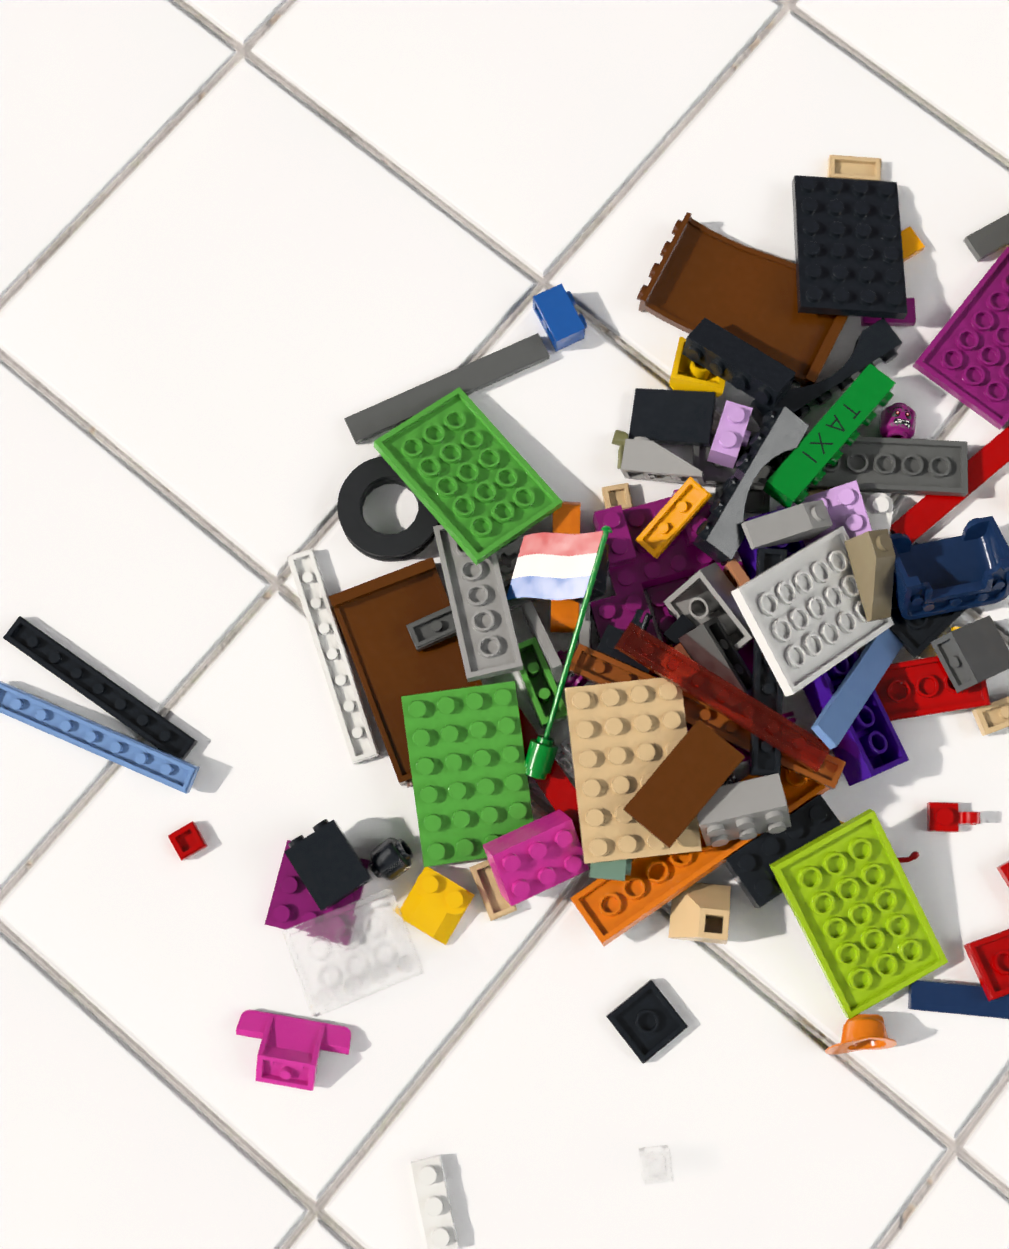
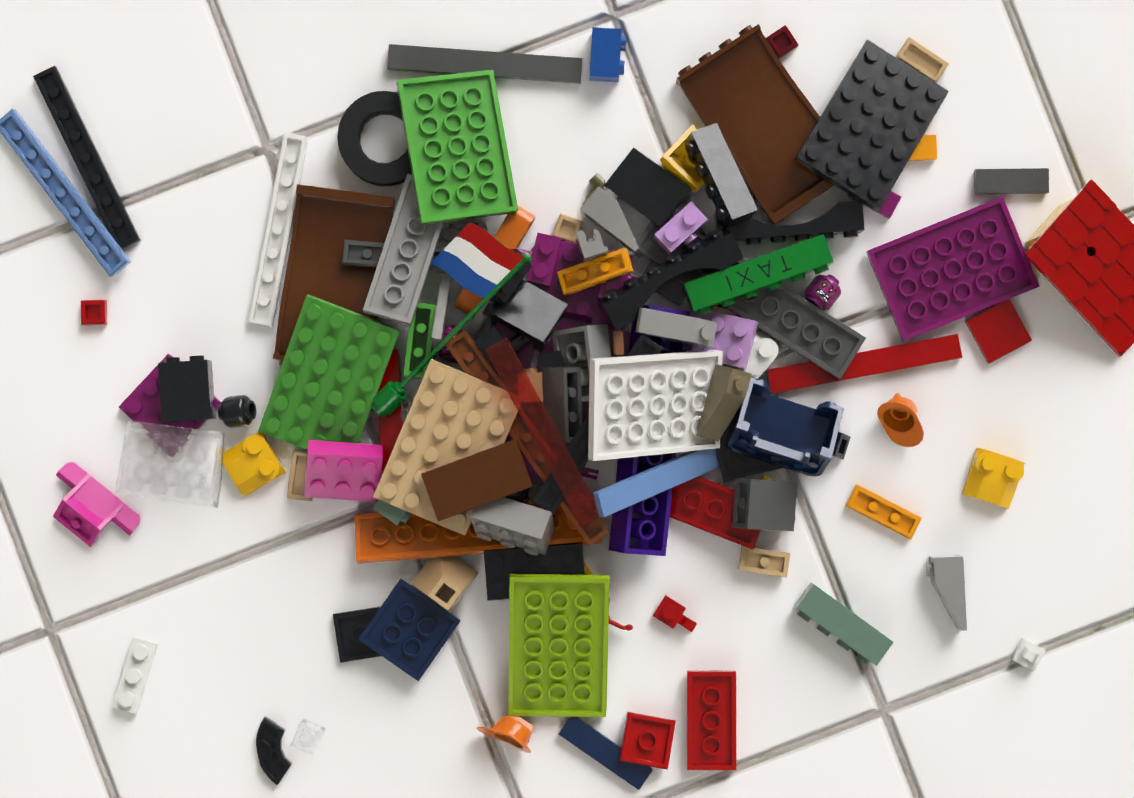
camera: 30 degrees right, 10 degrees up
(623, 1205) = (270, 750): none -> black tile
(634, 592) = (530, 313): none -> panel
(653, 497) = (590, 249): none -> light grey hinge
(695, 986) = (409, 629): none -> dark blue plate
(716, 219) = (782, 41): none -> dark red tile

